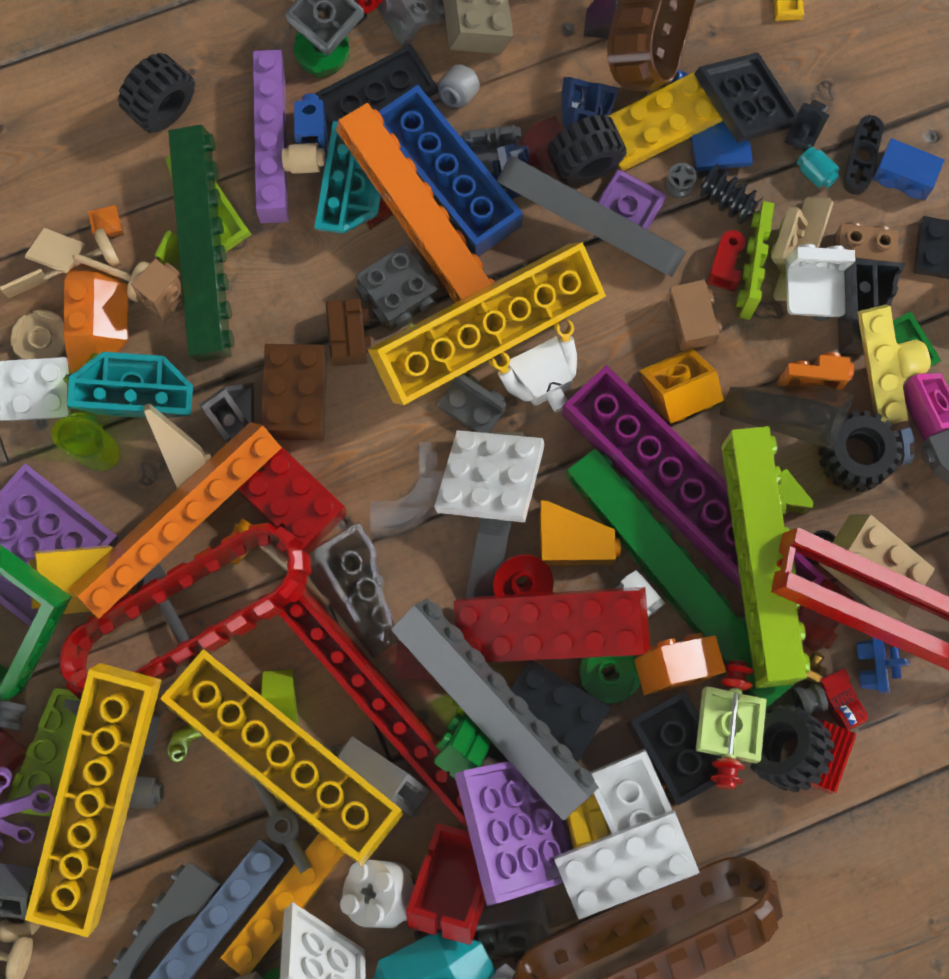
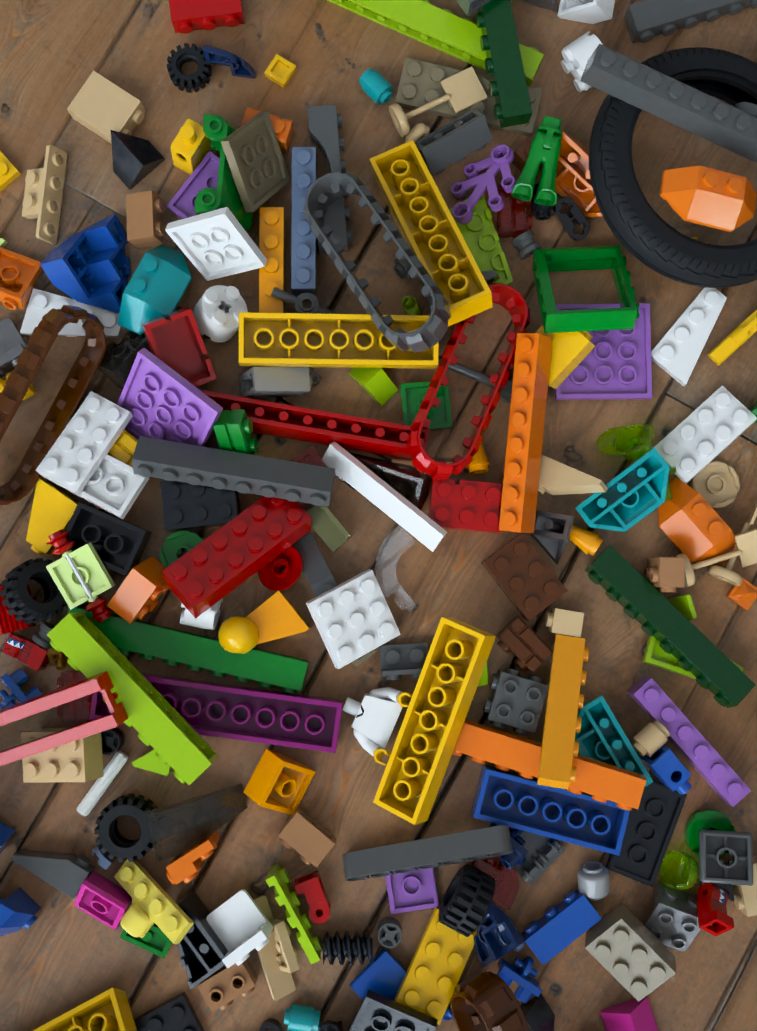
camera: 140 degrees right, 10 degrees up
(178, 930) = (318, 199): none -> dark grey piece
(206, 378) = (585, 540): none -> light orange cone
(257, 644) = (412, 397): none -> green plate
(291, 321) = (564, 622): none -> tan brick
(363, 238) = (561, 712): none -> light orange brick
(365, 570) = (384, 496): none -> white tile
(375, 37) = (679, 870): none -> clear neon green hair
(444, 585) = (328, 527): none -> olive panel
(520, 72) = (560, 926): none -> blue brick
(589, 57) = (527, 985): none -> blue hips
(615, 546) = (238, 635): none -> yellow hair
(718, 819) = (49, 514): none -> yellow slope
(875, 508) = (102, 783): none -> white axle

